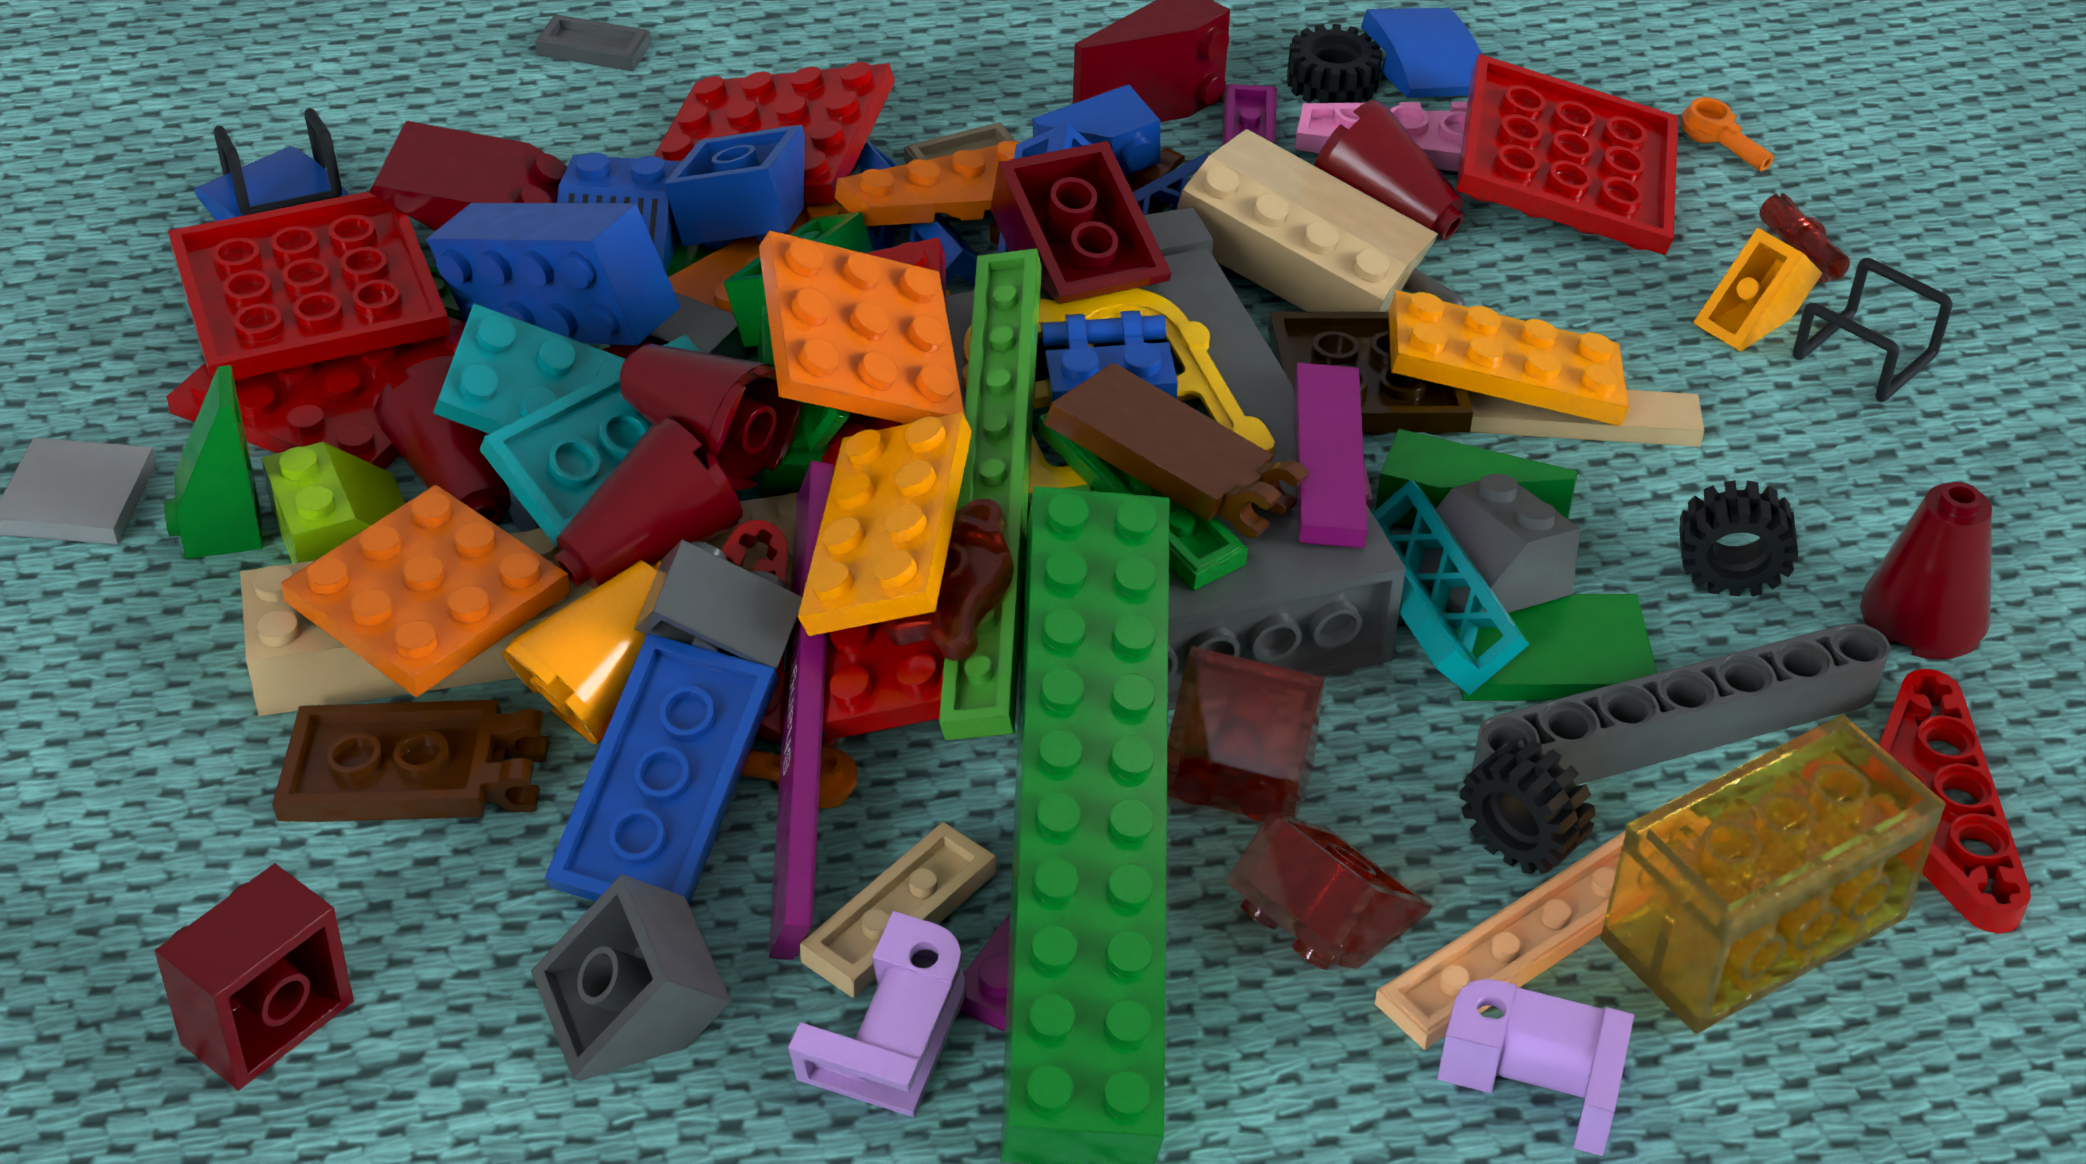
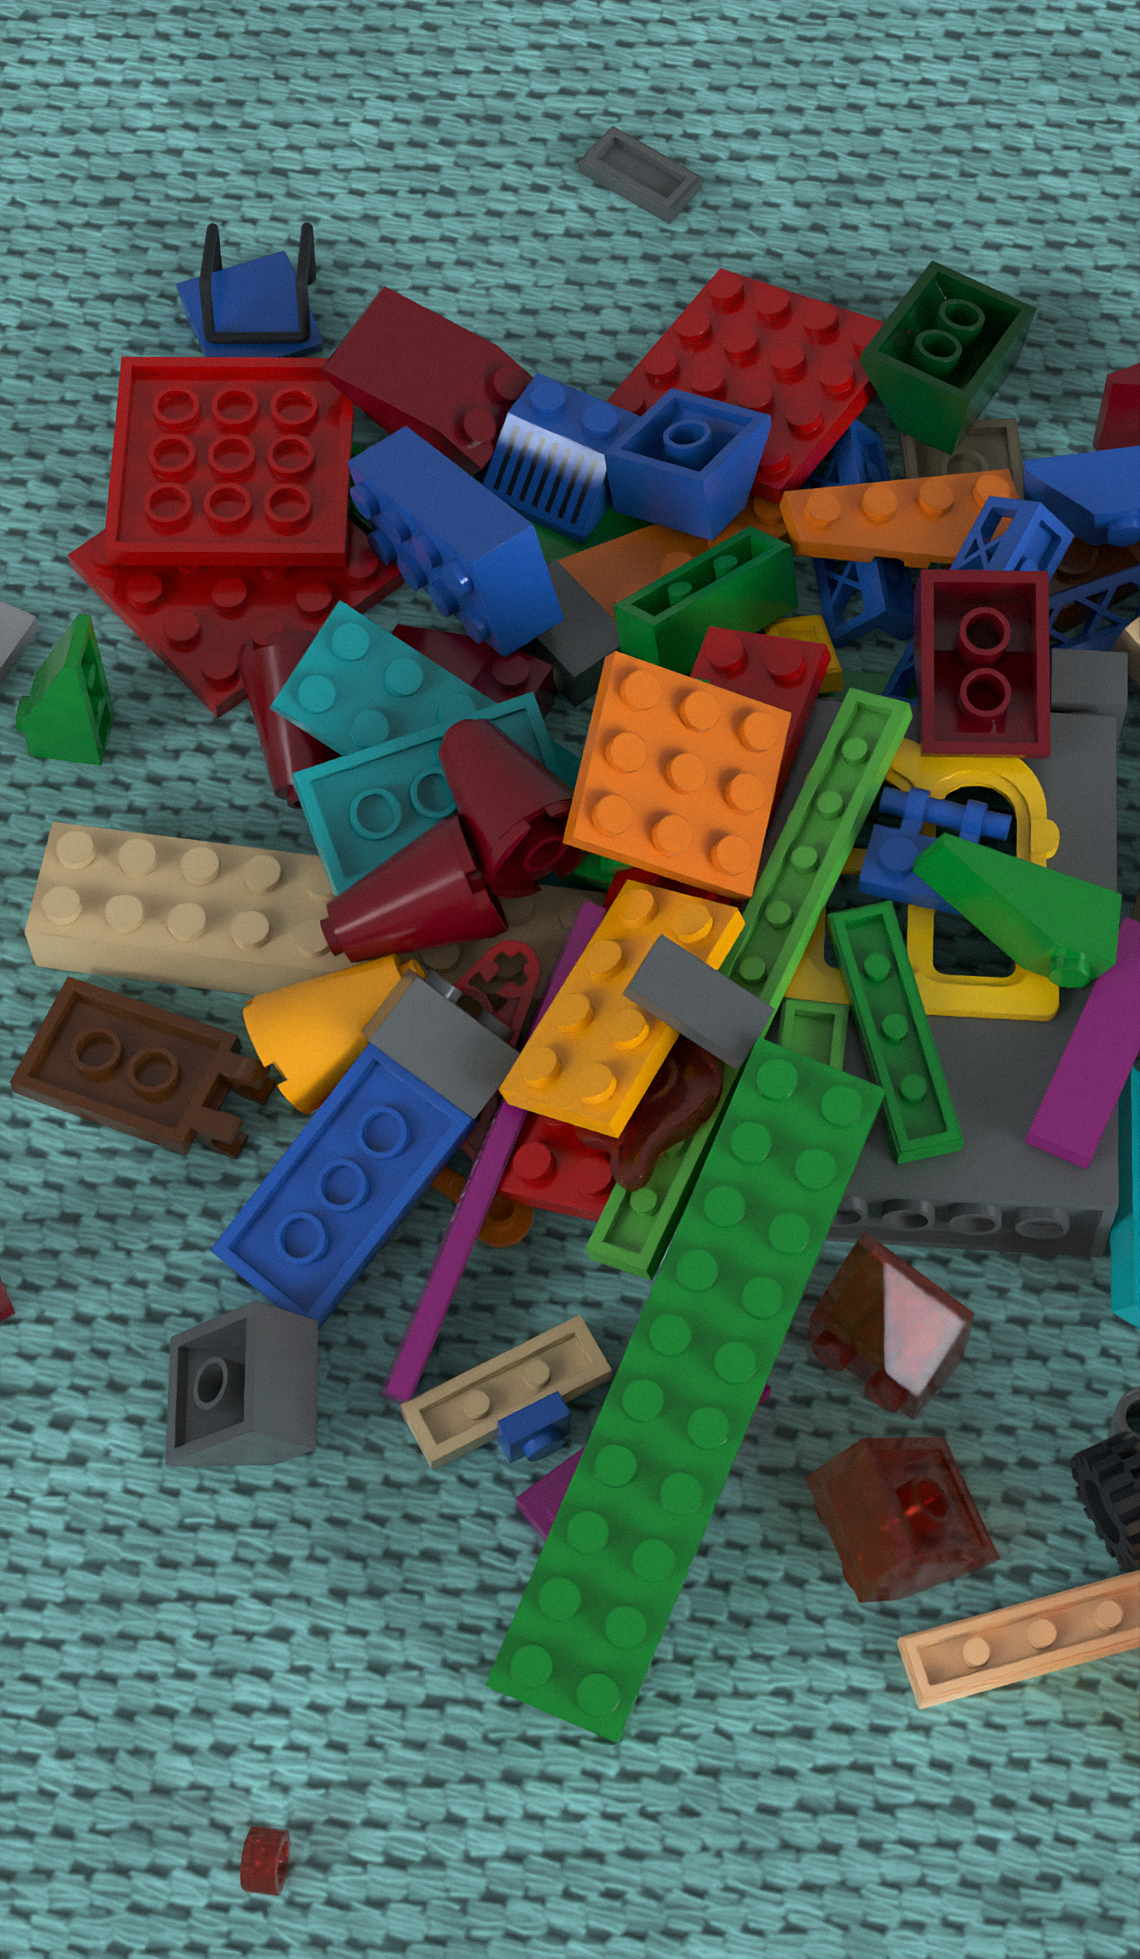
camera: 25 degrees right, 20 degrees up
(325, 497) = (176, 758): lime slope -> none
(425, 589) = (201, 910): orange plate -> none
(904, 1025) = (454, 1525): lavender piece -> none
(930, 78) = (953, 358): none -> dark green slope
(953, 909) = (535, 1429): none -> blue plate
(964, 479) = (698, 1001): none -> dark grey tile
(1175, 449) = (940, 1002): reddish brown tile -> none
(1216, 361) = (1029, 911): none -> green slope
(1540, 1044) = (1018, 1759): lavender piece -> none

